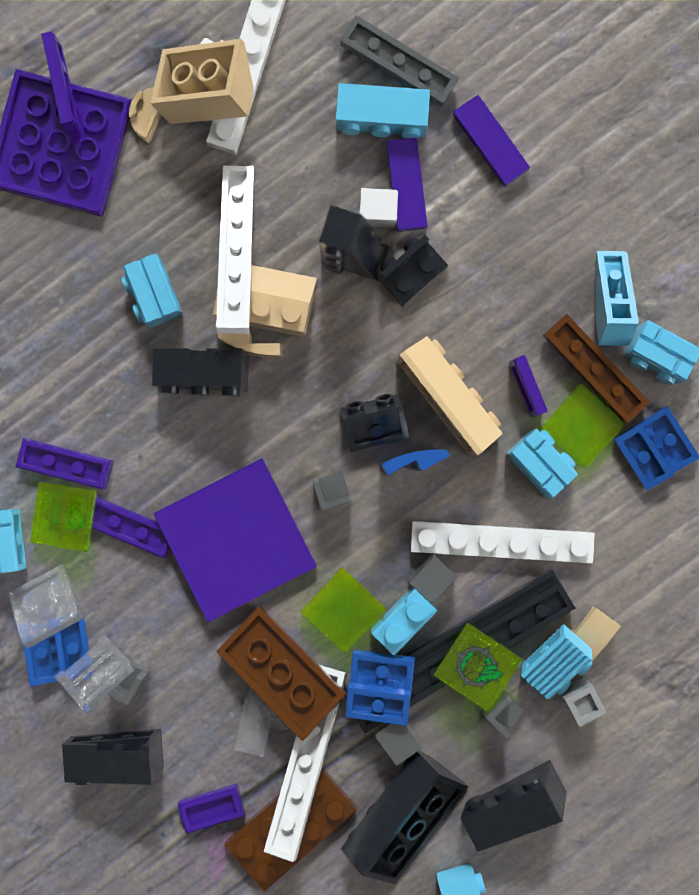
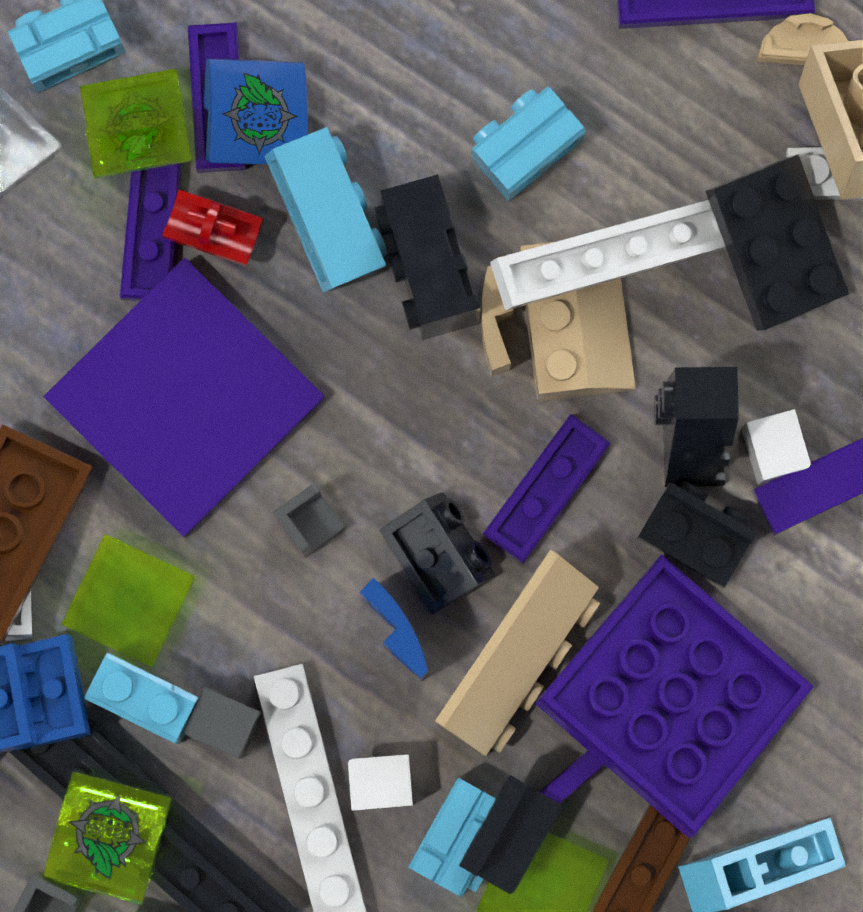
camera: 75 degrees right, 5 degrees down
(80, 443) = (253, 108): none -> blue slope
(141, 491) = (213, 228): none -> red hips
(151, 420) = (326, 208): none -> medium azure brick
(259, 165) = (777, 242): none -> black plate
(357, 348) = (546, 488): none -> dark purple tile
(497, 498) = (380, 782): none -> white panel
(503, 314) = (674, 696): none -> dark purple tile
(553, 434) = (510, 835): none -> black panel

